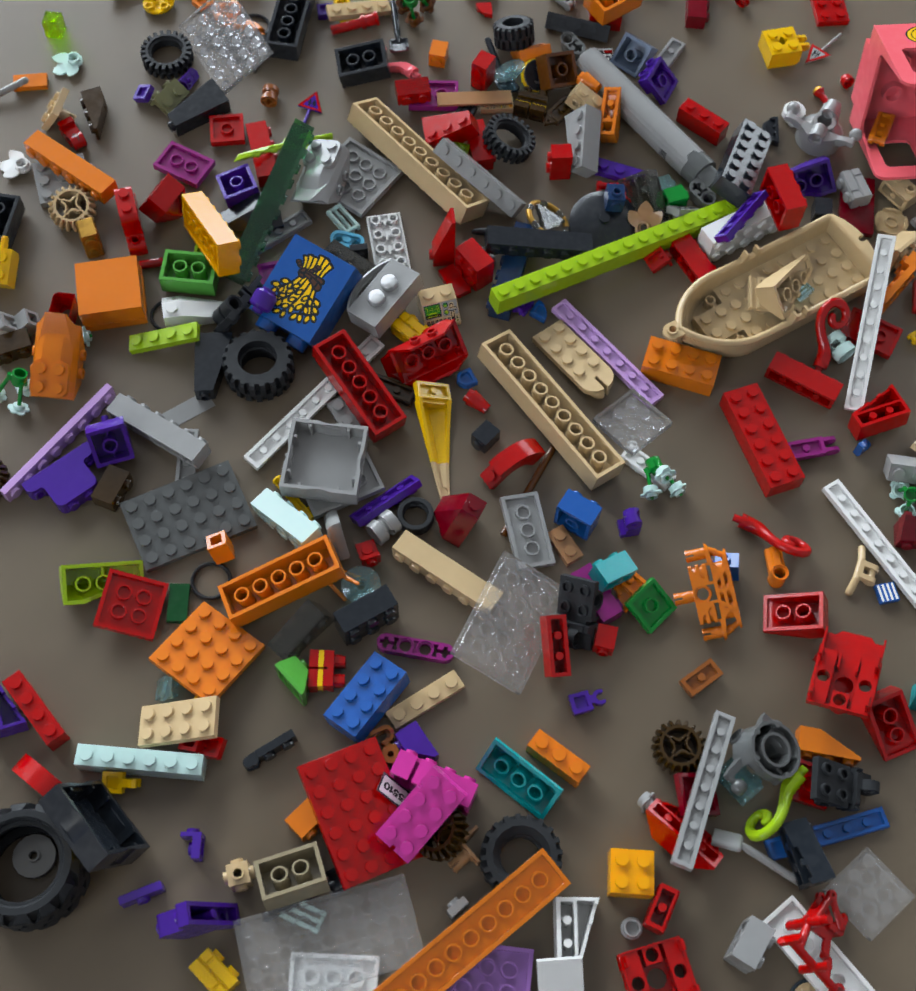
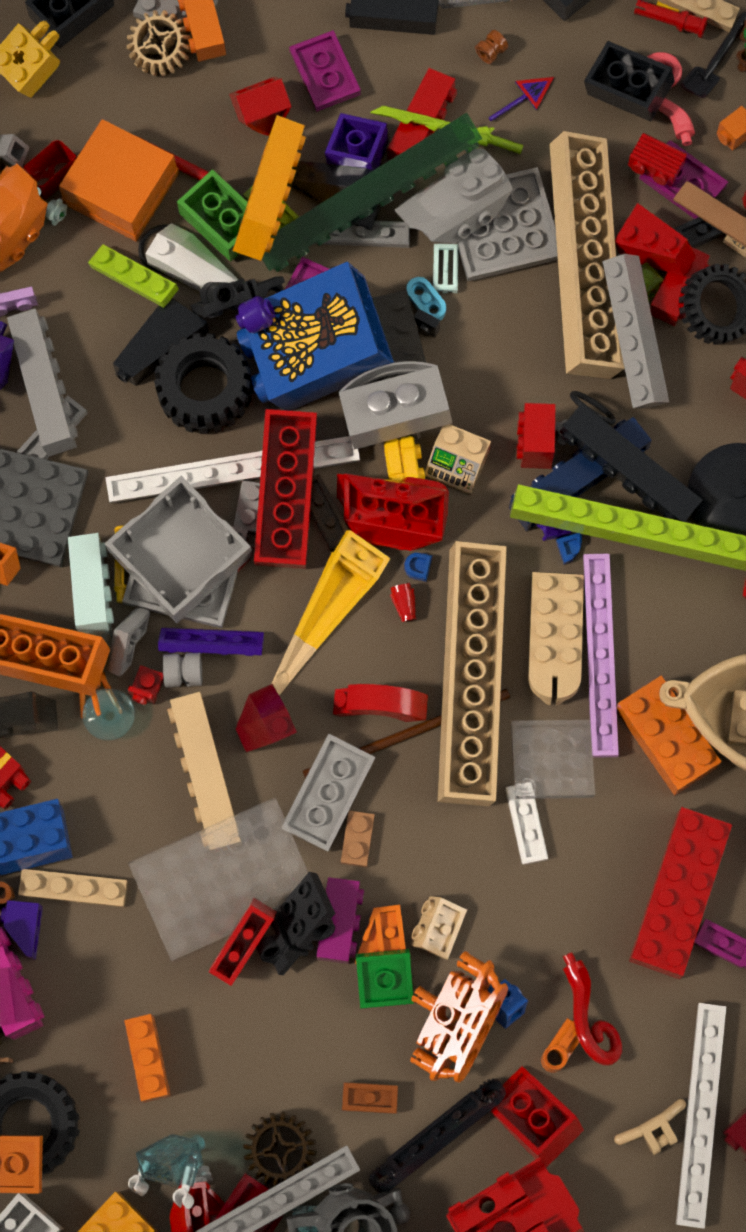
camera: 45 degrees right, 10 degrees up
(90, 237) = (147, 95): pearl gold brick -> none
(131, 220) = (207, 103): red brick -> none
(188, 410) = (94, 378): light grey sticker -> none
(227, 129) = (407, 58): red plate -> none
(366, 615) = (82, 754): black brick -> none
(387, 238) = (471, 335): white tile -> none
(415, 644) = (110, 824): magenta beam -> none
(420, 503) = (223, 663): black tyre -> none
(444, 242) = (525, 384): red wedge -> none
(450, 275) = (504, 438): red tile -> none
(485, 436) = (376, 650): black brick -> none
(519, 779) = (92, 1047): teal slope -> none
(547, 219) = (674, 439): clear smoke piece -> none
(577, 514) = (394, 818): blue brick -> none
(583, 702) = (225, 1022): dark purple plate -> none
(605, 639) = (305, 976): red brick -> none
(613, 570) = (372, 910): teal brick -> none
(626, 804) = (172, 1163): none -> clear light blue torso
(630, 524) = (444, 872): dark purple leg -> none
(651, 556) = (438, 926): none -> tan bracket
(664, 474) = (523, 849): light aqua plant -> none
(756, 668) = (437, 1135): none -> black plate
(886, 593) = (660, 1174): blue tile -> none

